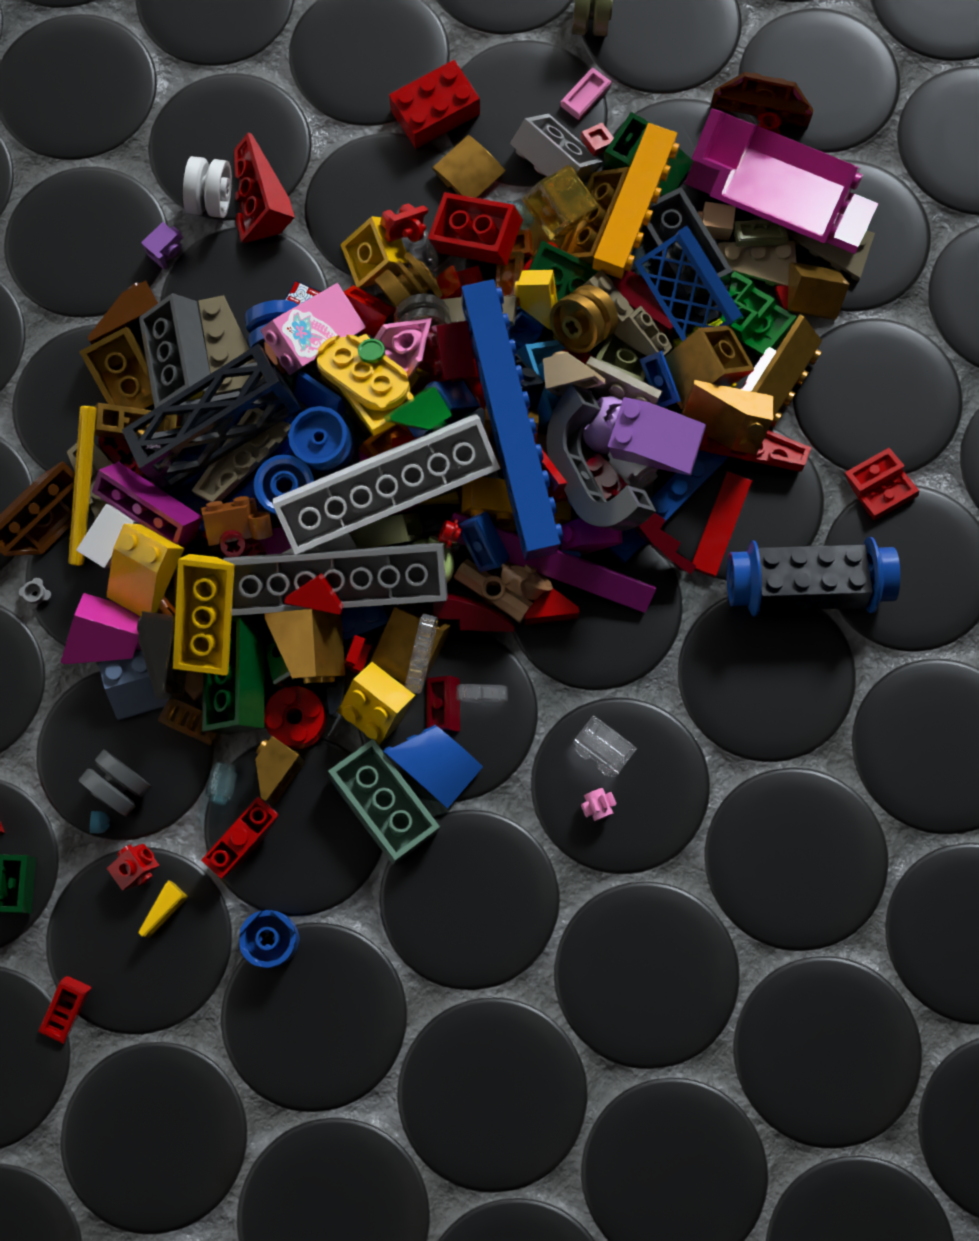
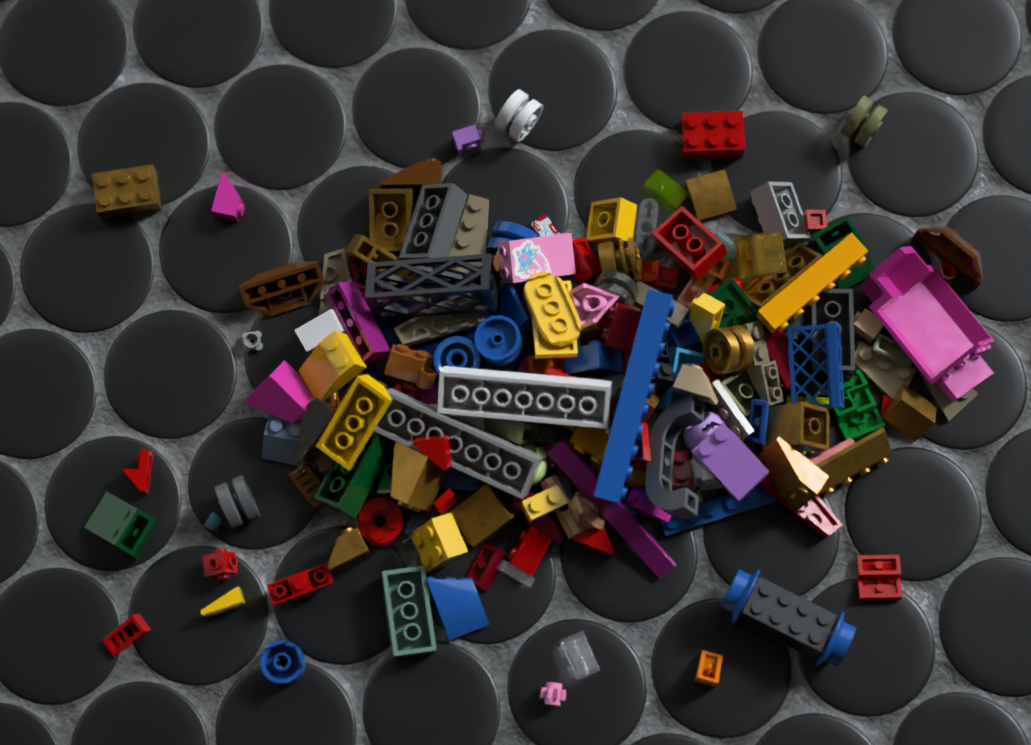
camera: 30 degrees right, 0 degrees up
(82, 483) = (322, 283): yellow axle -> none
(221, 783) = (307, 540): clear light blue brick -> none
(234, 551) = (402, 374): dark red bush -> none
(262, 199) = (553, 143): red wedge -> none
(371, 351) = (565, 297): green piece -> none
(405, 223) = (642, 216): red hips -> none
(416, 188) = (666, 189): none -> clear neon green plate
(421, 412) = (576, 359): green slope -> none
(421, 653) = (487, 525): clear beam -> none
(449, 533) = (551, 452): red plate -> none
(471, 595) = (543, 503): none -> yellow plate
(483, 542) = (572, 471): blue slope -> none
(484, 657) = (531, 550): none -> red brick
(585, 93) = (826, 181): bright pink tile -> none
(662, 542) = (696, 536): dark red slope -> none
(721, 524) = (748, 545): red tile -> none
(755, 683) = (708, 669): none -> orange slope

